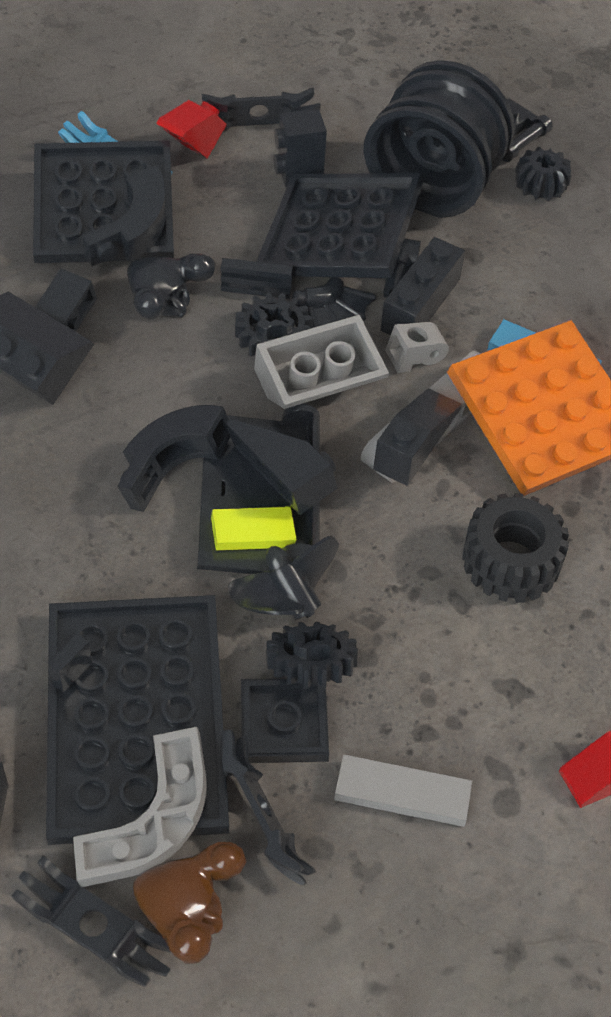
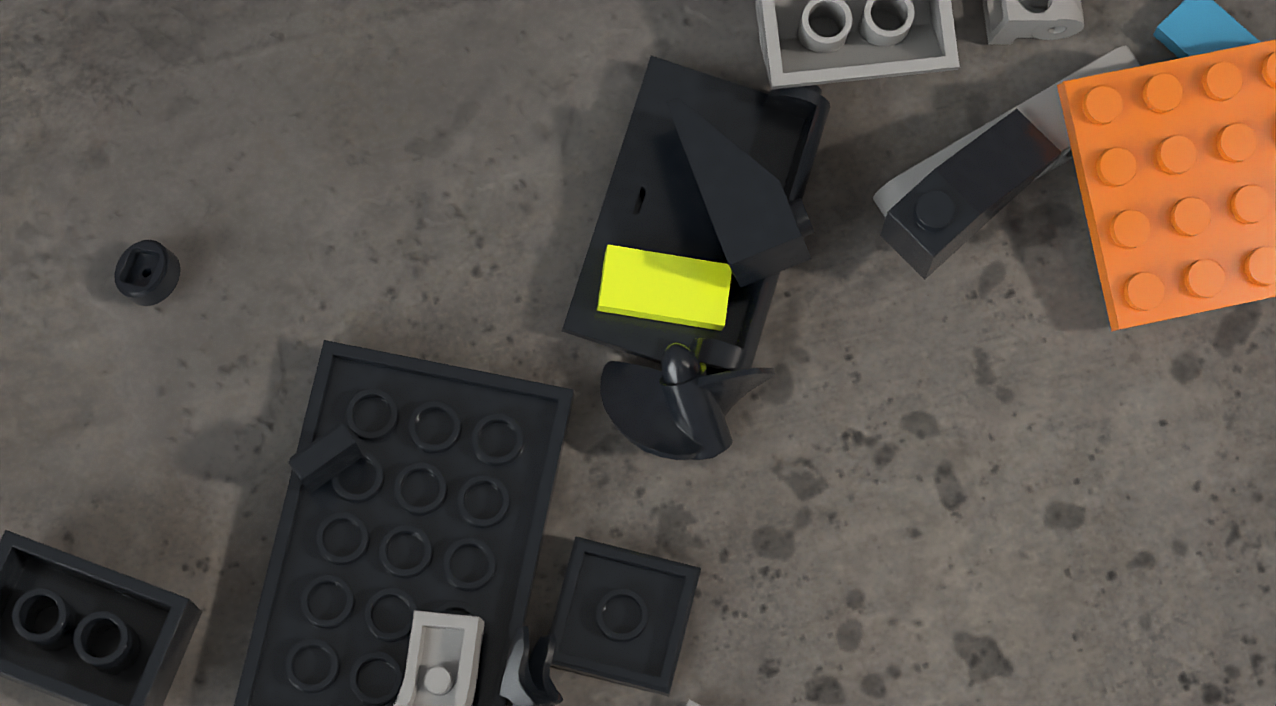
camera: 20 degrees right, 20 degrees up
(167, 442) = (570, 104): black arch -> none
(311, 654) = (688, 530): black gear -> none
(520, 522) = (1093, 389): black tyre -> none

